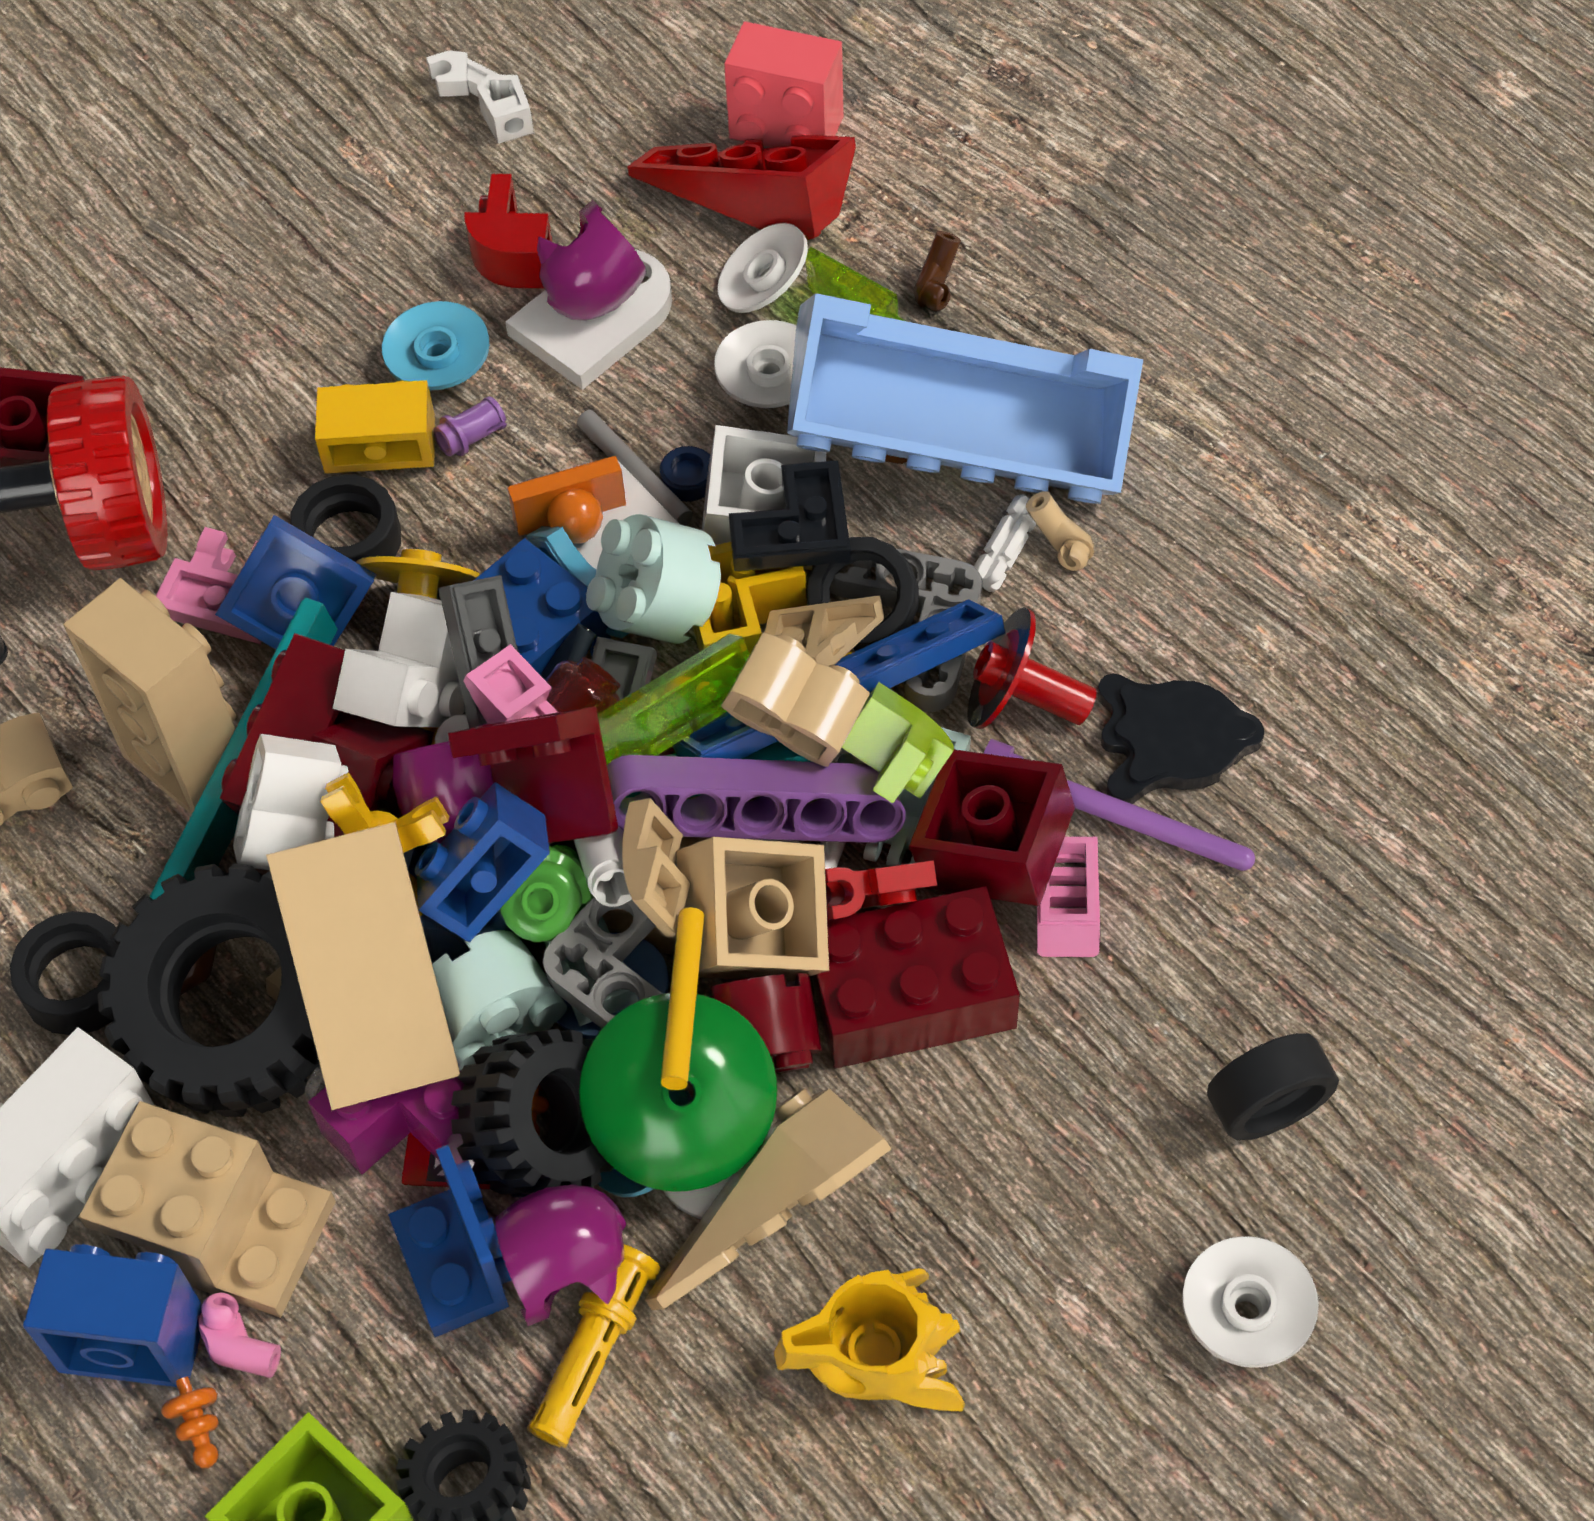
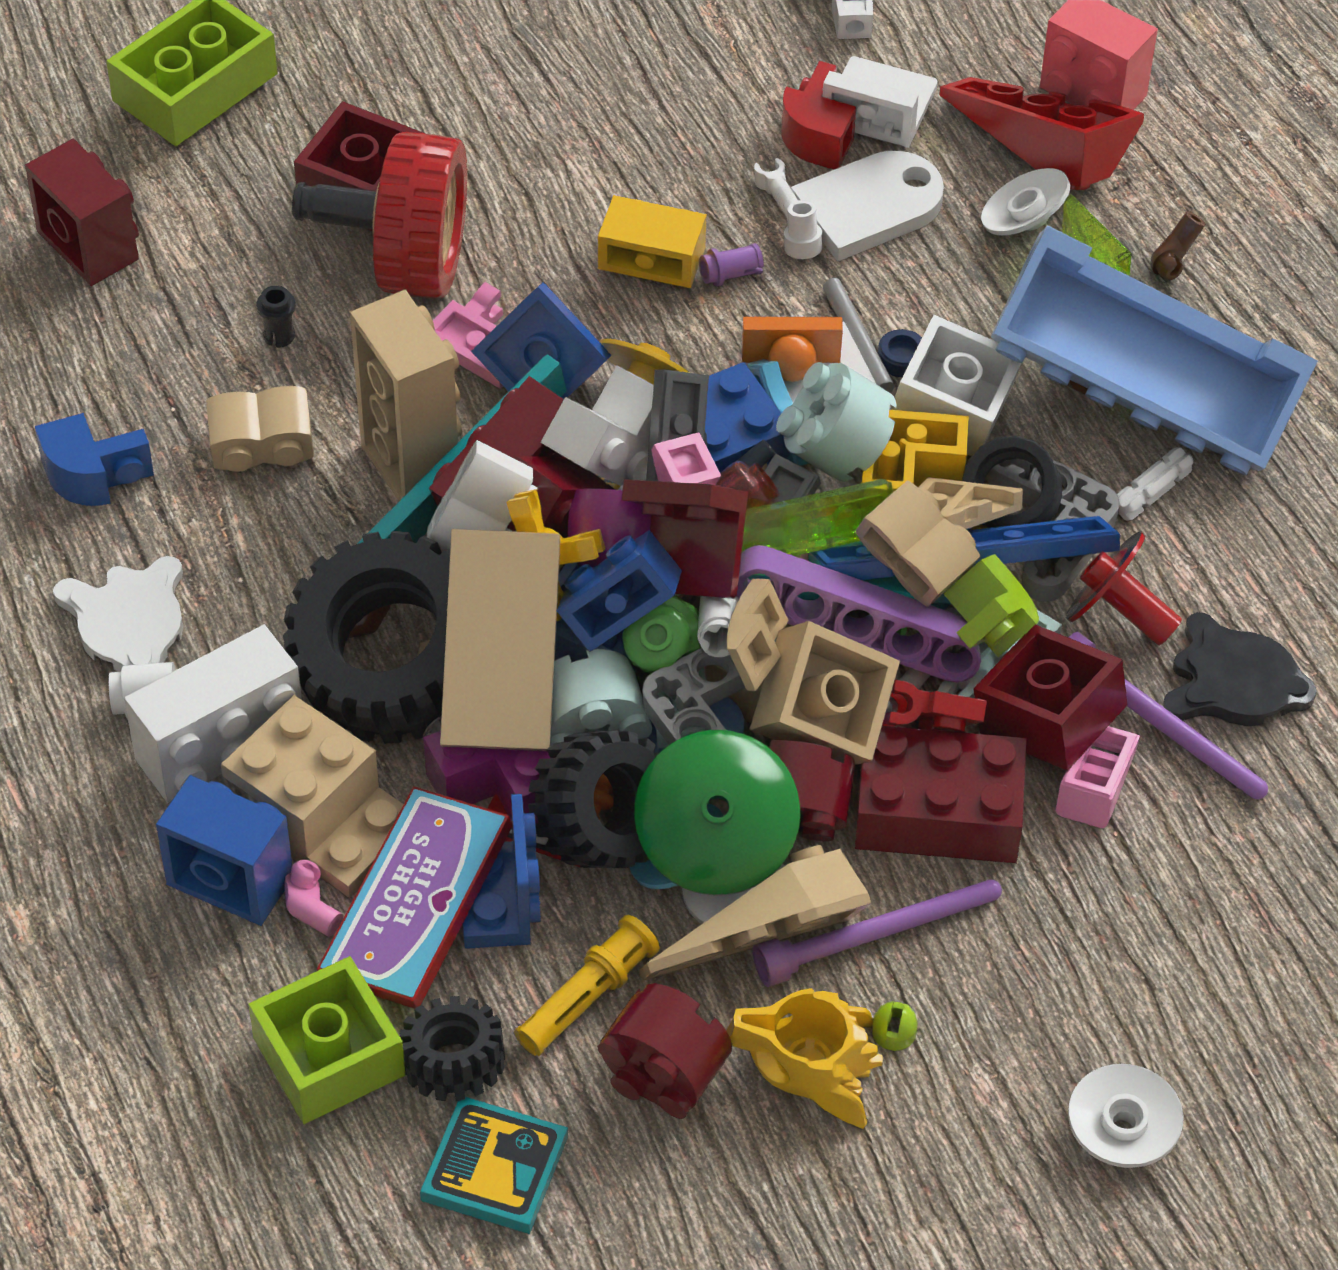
camera: 15 degrees right, 5 degrees down
(39, 948) = (254, 567): black tyre -> none
(196, 1424) = (260, 951): orange hair -> none
(350, 494) = (609, 290): black tyre -> none
(359, 1299) = (418, 894): none -> tile
(432, 330) = (725, 188): medium azure dish -> none
(535, 370) = (802, 234): none -> white brick
(560, 1240) = (585, 897): magenta piece -> none
(565, 188) = (886, 98): none -> white bracket
(593, 271) = (875, 164): magenta piece -> none
(682, 999) = (742, 736): yellow bar -> none
(711, 1402) = (664, 1049): none -> dark red brick
(757, 363) = (988, 276): white dish -> none
(801, 1237) = (778, 960): none -> medium lavender piece
(802, 534) = (975, 421): black tile -> none
(939, 1273) = (907, 1028): none -> lime hinge
(1064, 535) = (1206, 493): tan arm -> none
(1272, 1086) = (1206, 960): black tyre -> none

